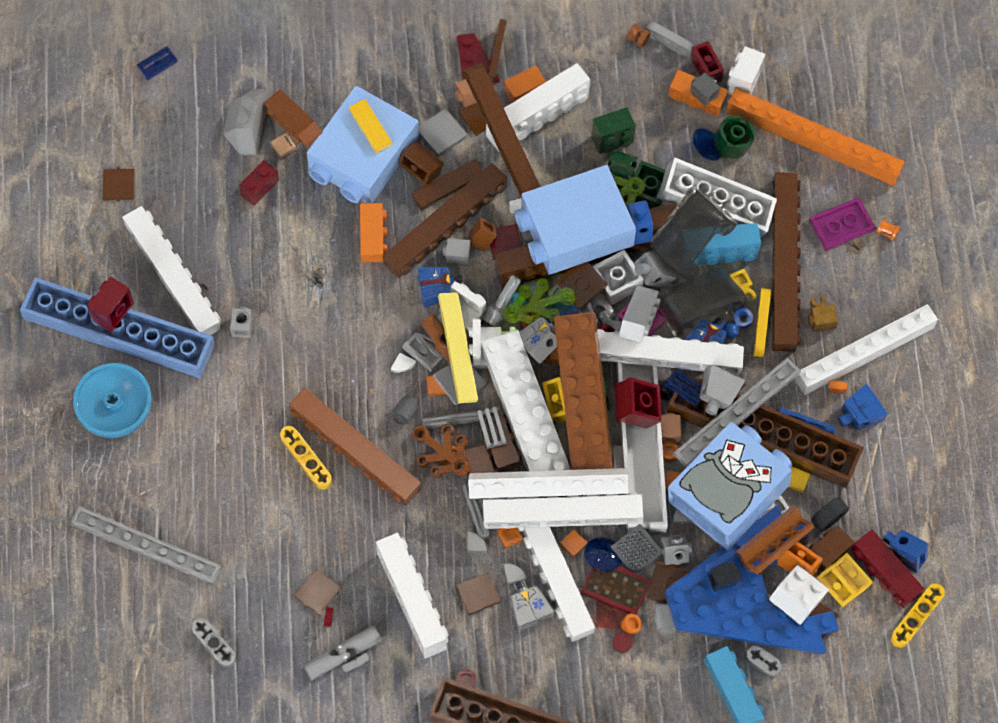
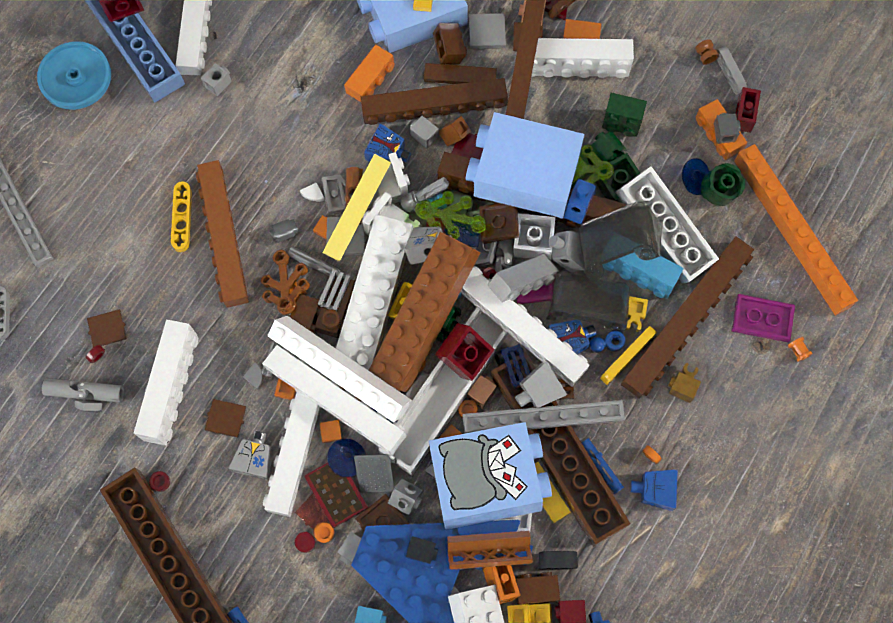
camera: 40 degrees right, 5 degrees up
(506, 452) = (330, 319): none -> reddish brown tile
(513, 573) = (264, 422): light grey tile -> none
(746, 70) = (775, 136): white brick -> none
(866, 349) = (702, 439): white brick -> none

